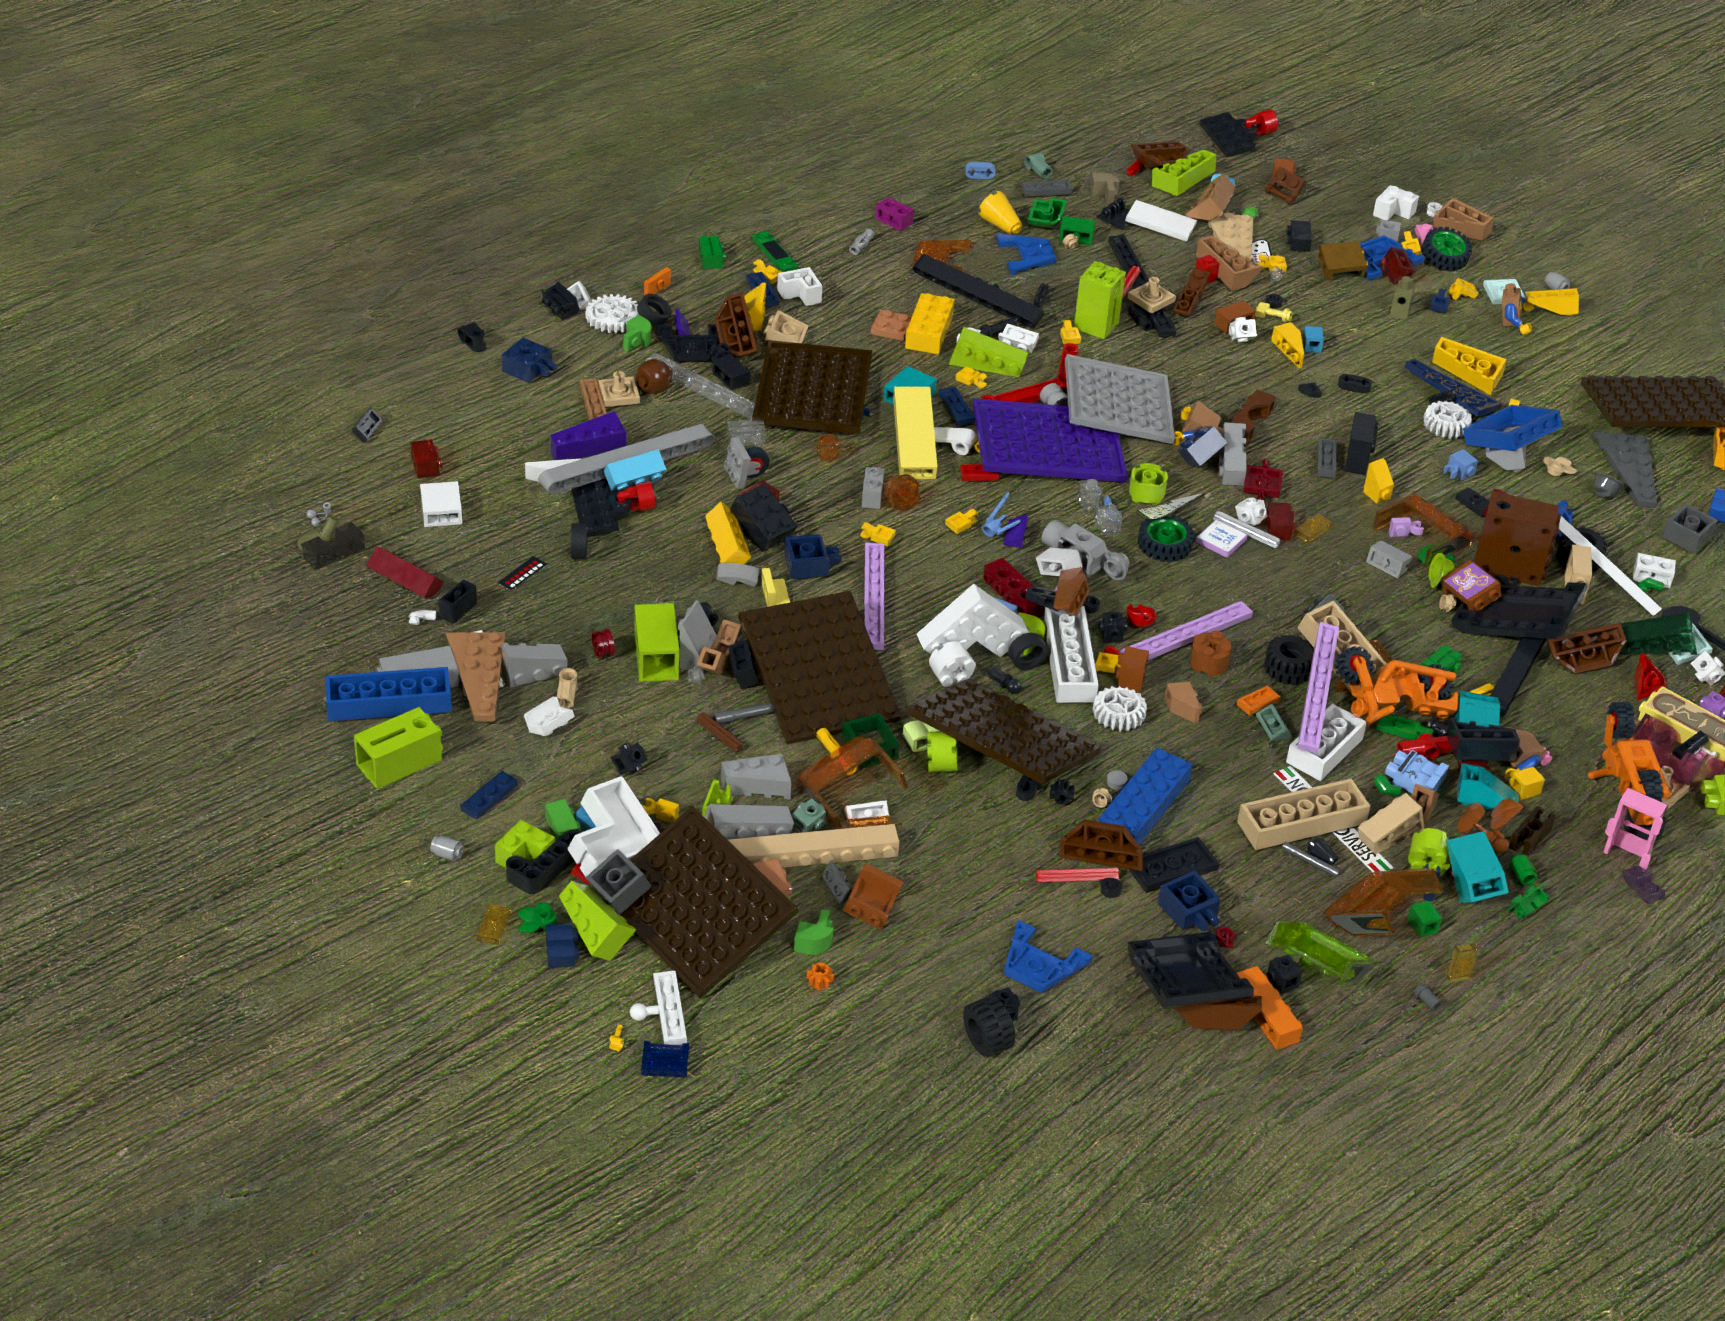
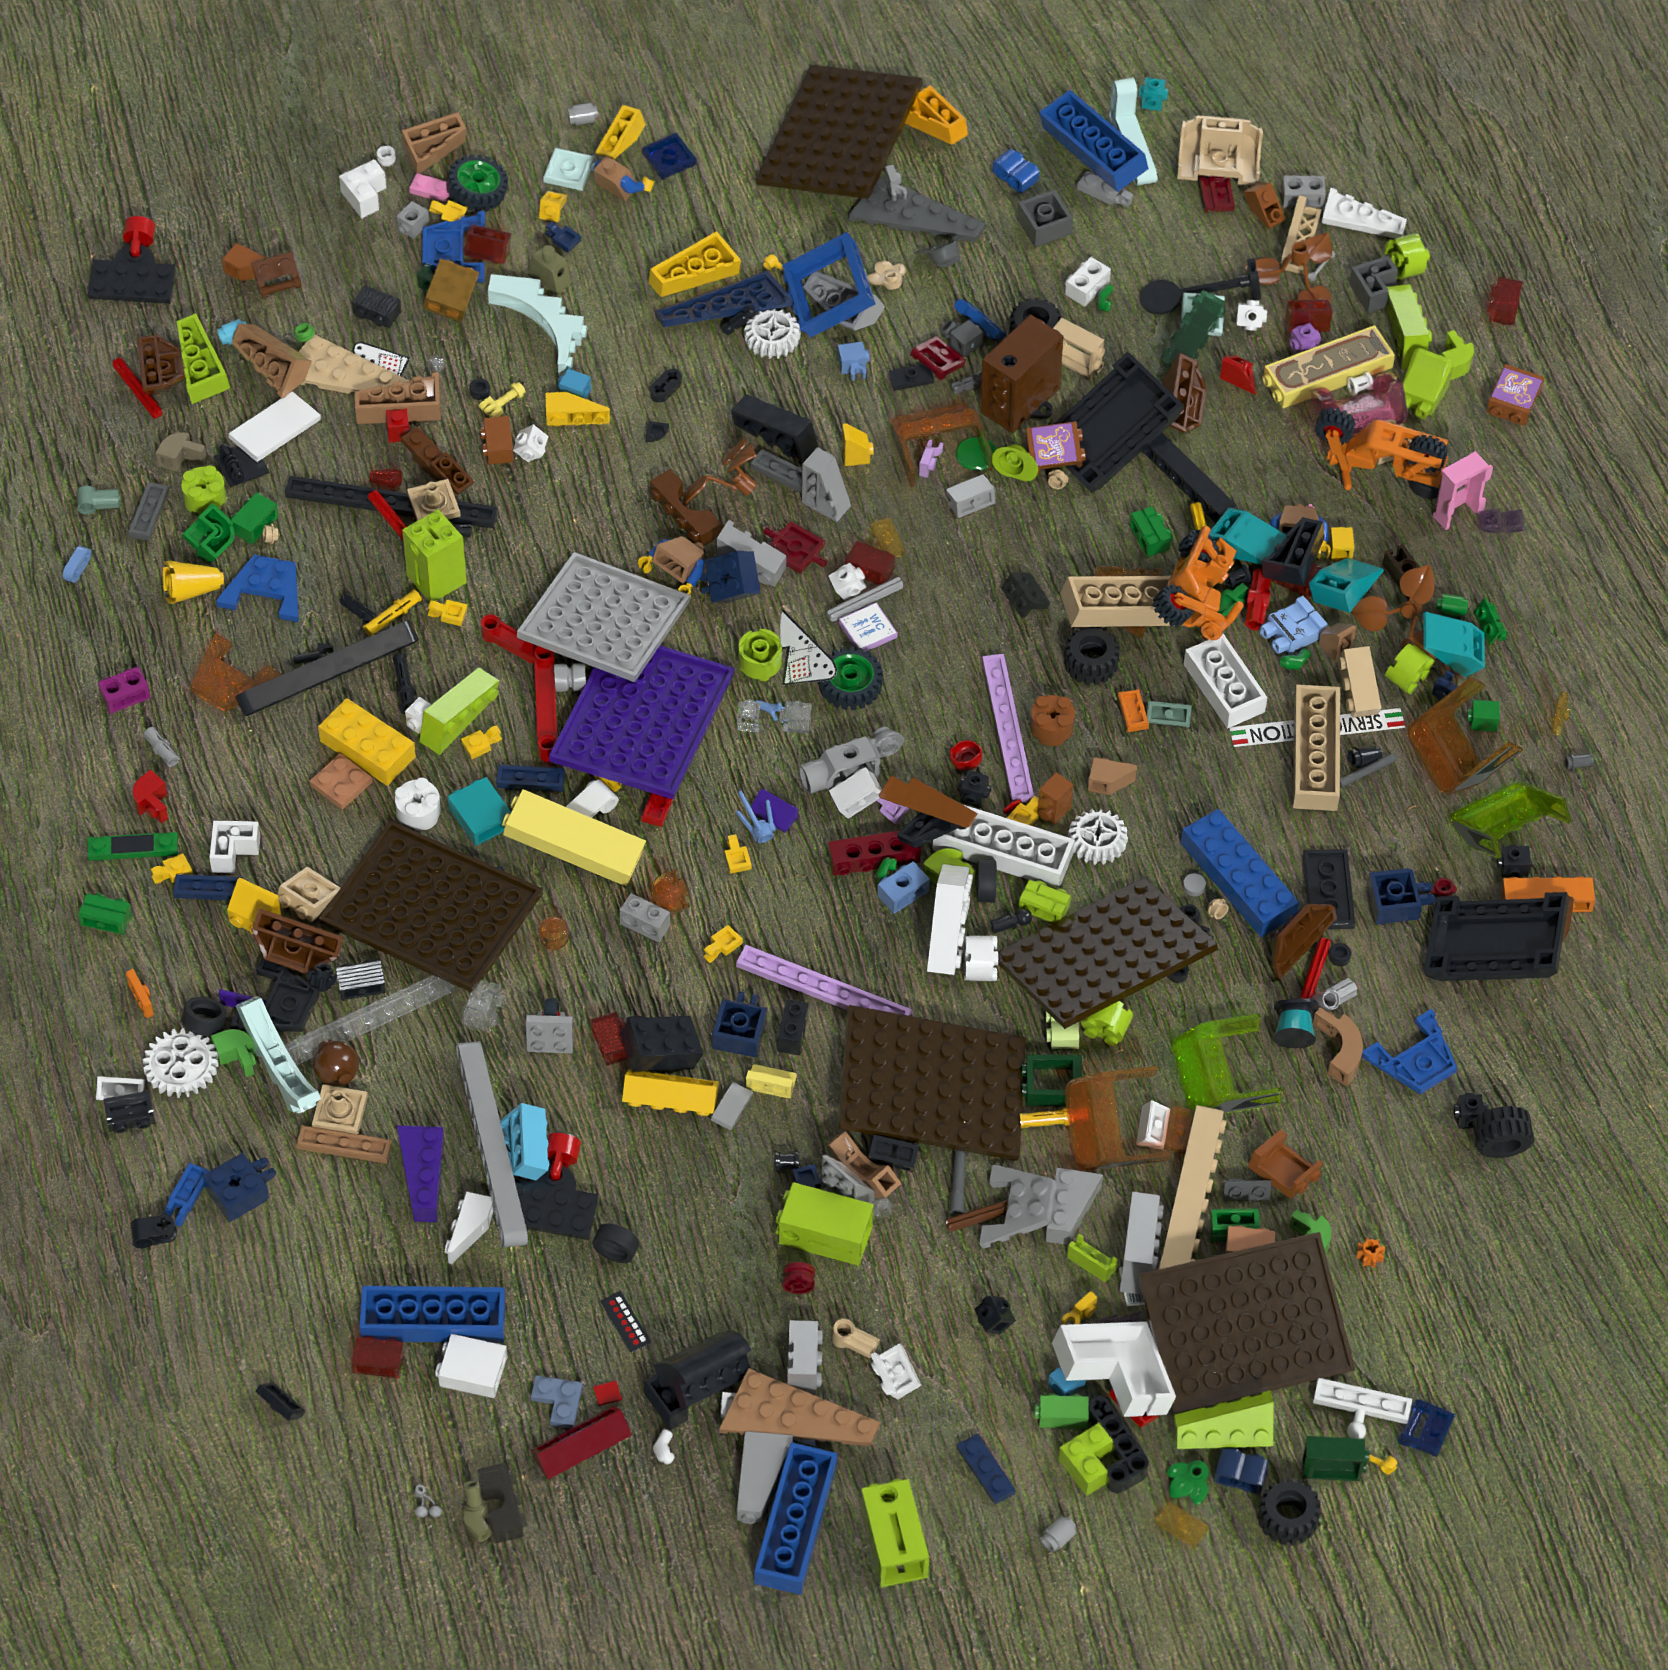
camera: 65 degrees left, 15 degrees up
(439, 558) = (564, 1396): none -> sand blue plate
(454, 578) = (607, 1393): none -> red piece
(472, 469) = (433, 1313): none -> blue brick
(489, 606) = (705, 1367): none -> black brick
(504, 342) = (186, 1192): none -> blue hinge
(533, 995) = (1289, 1494): none -> black tyre
(596, 994) = (1334, 1458): none -> dark green window
(618, 881) = (1197, 1383): dark grey brick -> none
(635, 350) = (281, 1068): none -> light aqua arch
(733, 749) = (1028, 1204): none -> light grey wing
(798, 877) = (1222, 1218): none -> green brick
(809, 816) = (1150, 1177): sand green brick -> none
(818, 244) = (147, 795): none -> red brick
(825, 583) = (793, 1027): none -> black brick
(892, 357) = (417, 804): none -> white brick
(938, 822) = (1205, 1069): none -> clear neon green windscreen
(1002, 594) = (887, 864): none -> green arm
(1005, 914) = (1349, 1040): none -> medium nougat arch
(1016, 866) = (1295, 1022): none -> black hat
(1019, 338) = (435, 665): white bracket -> none
(1036, 691) = (1045, 901): none -> lime brick
(1055, 311) = (411, 599): none -> yellow pin
(1065, 890) = (1336, 994): none -> light grey piece
(1081, 202) = (202, 488): none -> lime brick
(1084, 782) = (1191, 910): none -> black plate
(1162, 276) = (386, 477): none -> clear red cone
(1272, 261) = (411, 355): yellow plate -> none
(1298, 435) = (737, 455): none -> dark orange plant
(1318, 688) = (1178, 650): lavender plate -> none
(1324, 469) = (824, 486): none -> light grey wedge
(1364, 315) = (528, 298): none -> light aqua arch
(1561, 331) = (669, 156): none -> clear blue plate
(1610, 568) = (1078, 317): white sticker -> none
(1642, 437) = (893, 180): none -> light grey plate
(1691, 745) = (1355, 380): black bar -> none

